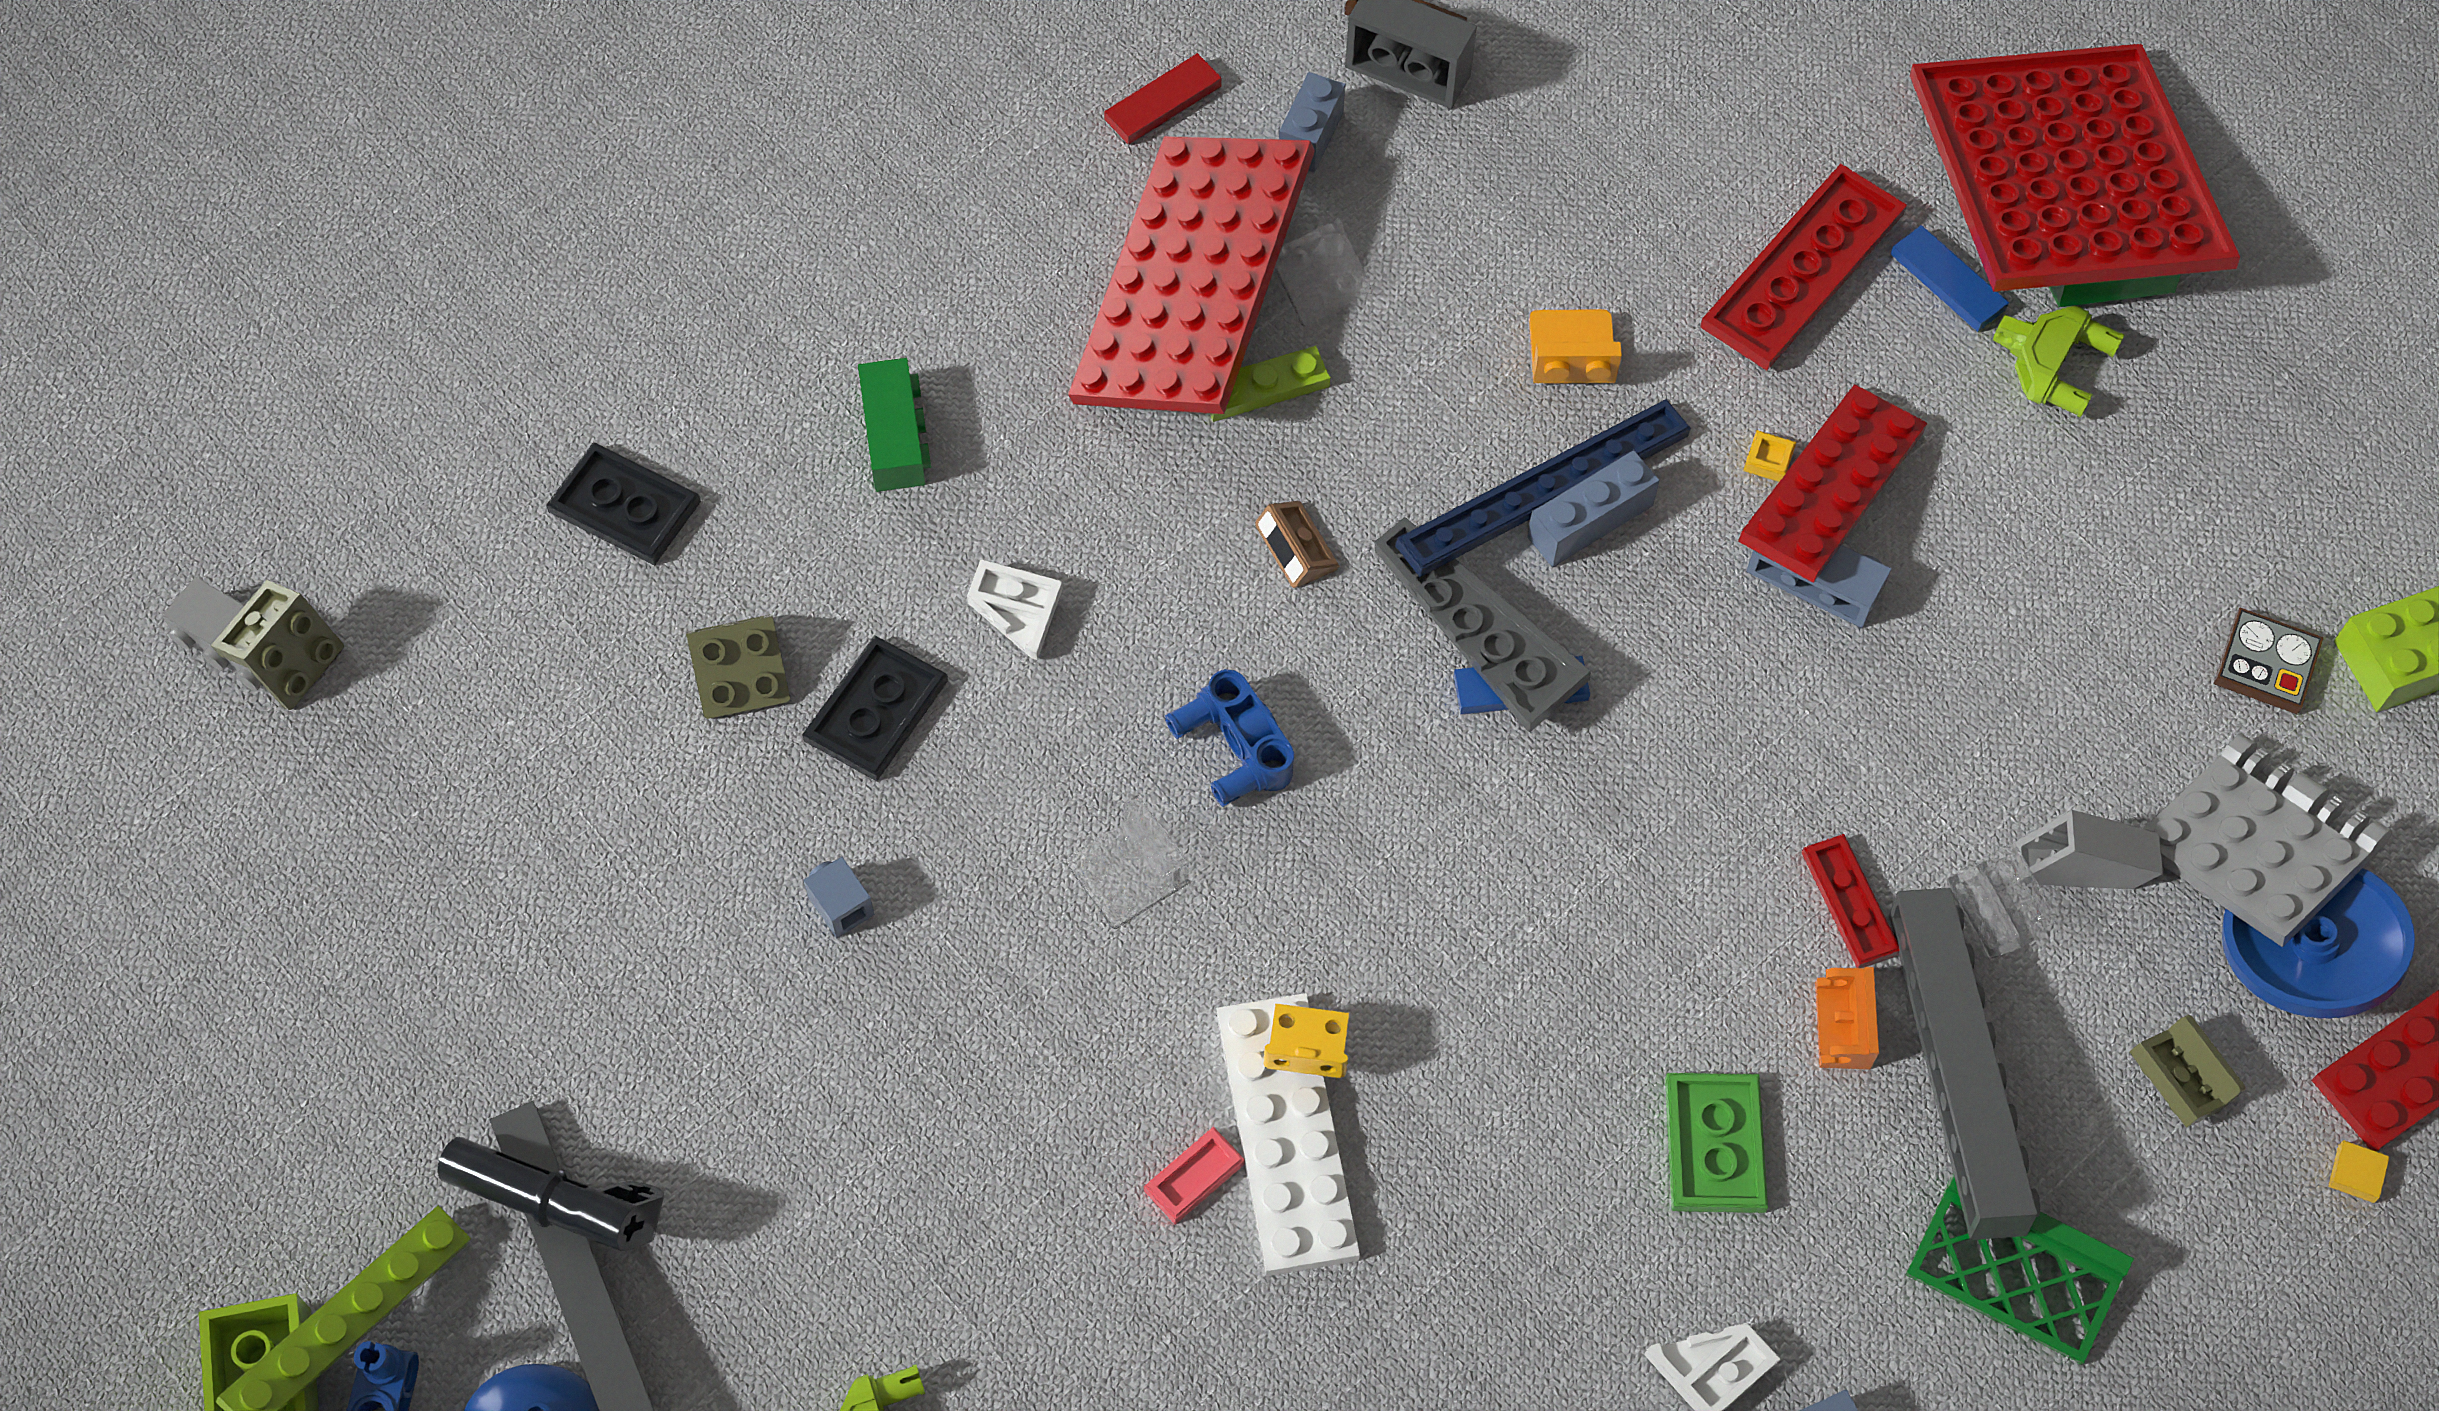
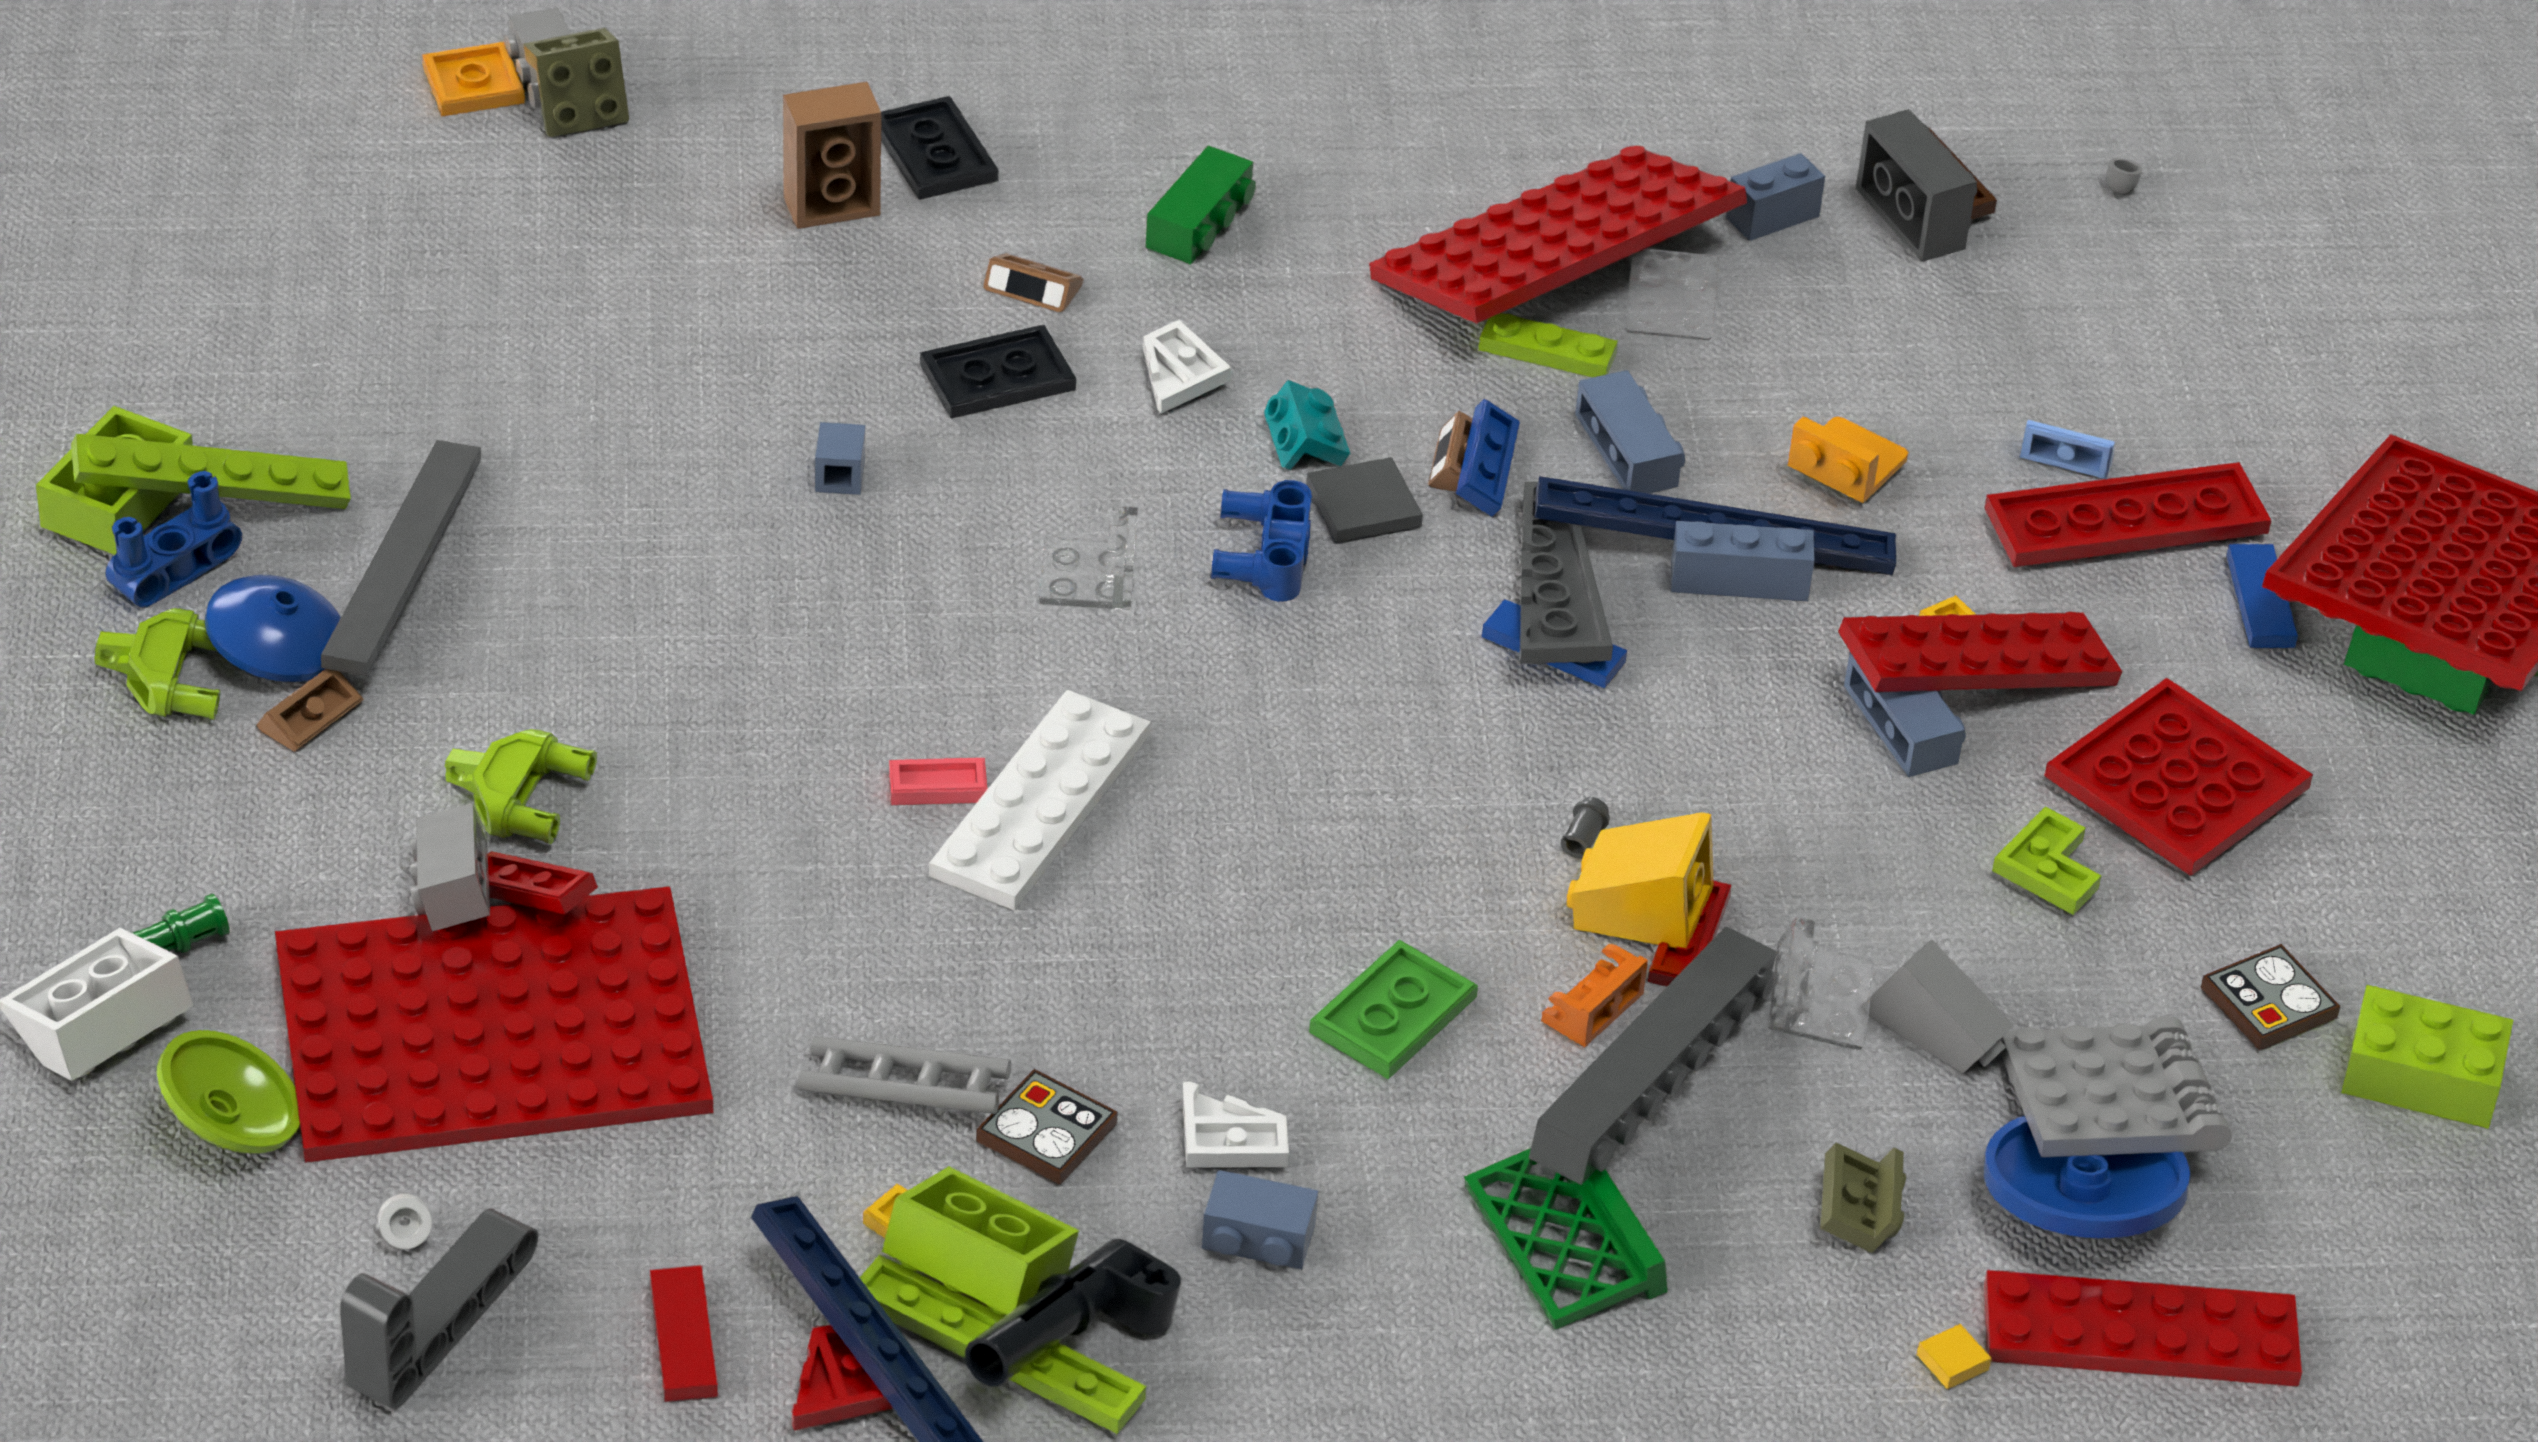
camera: 35 degrees right, 20 degrees down
(172, 692) = (473, 79): none -> light orange tile
(578, 589) = (832, 155): none -> medium nougat brick
(614, 1216) = (437, 496): black piece -> none
(738, 666) = (914, 281): olive bracket -> none
(822, 592) = (1031, 282): none -> slope
(1162, 98) = (1665, 125): red tile -> none
(1162, 599) = (1305, 422): none -> teal bracket
(1264, 640) = (1364, 499): none -> dark grey tile
(1308, 1041) = (1112, 733): yellow piece -> none
(1323, 533) = (1488, 457): none -> blue tile
(1405, 436) = (1629, 433): none -> sand blue brick
(1700, 856) = (1589, 818): none -> dark grey pin
(1713, 232) = (2067, 449): none -> light blue slope
(1802, 887) = (1646, 880): none -> yellow slope
(2025, 654) = (2041, 864): none -> lime plate
(2044, 347) = (2304, 681): lime connector -> none
(2045, 497) = (2178, 776): none -> red plate

